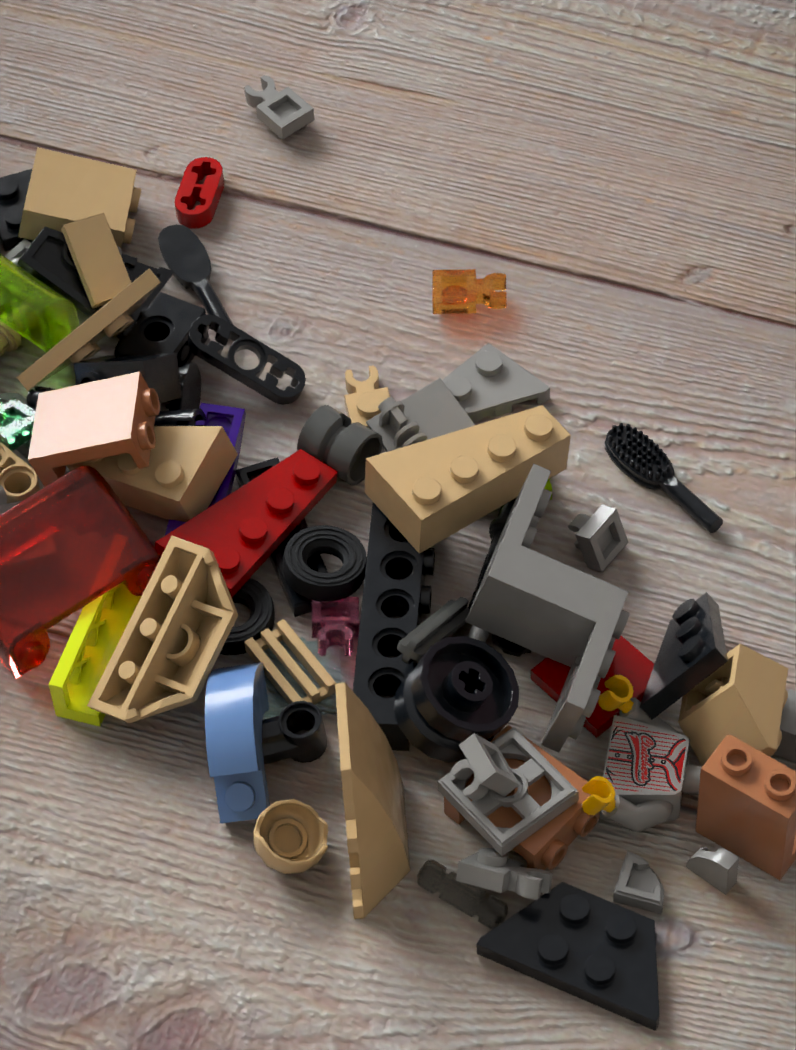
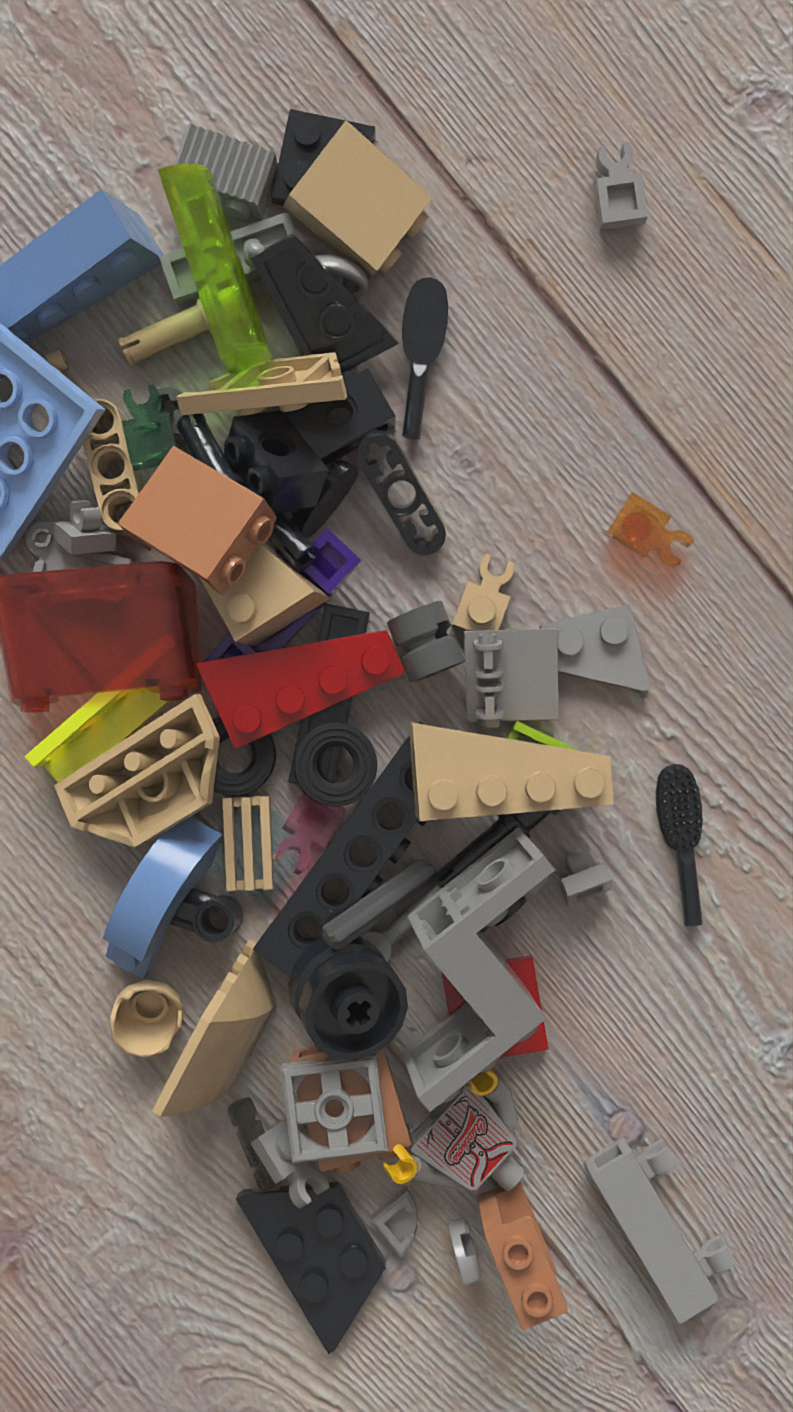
camera: 25 degrees right, 35 degrees up
(96, 258) = (325, 300): tan tile -> none
(192, 191) = (491, 256): red beam -> none
(488, 766) = (319, 1101): light grey tile -> none
(687, 656) = (571, 1069): black wing -> none
(736, 700) = (569, 1152): tan slope -> none

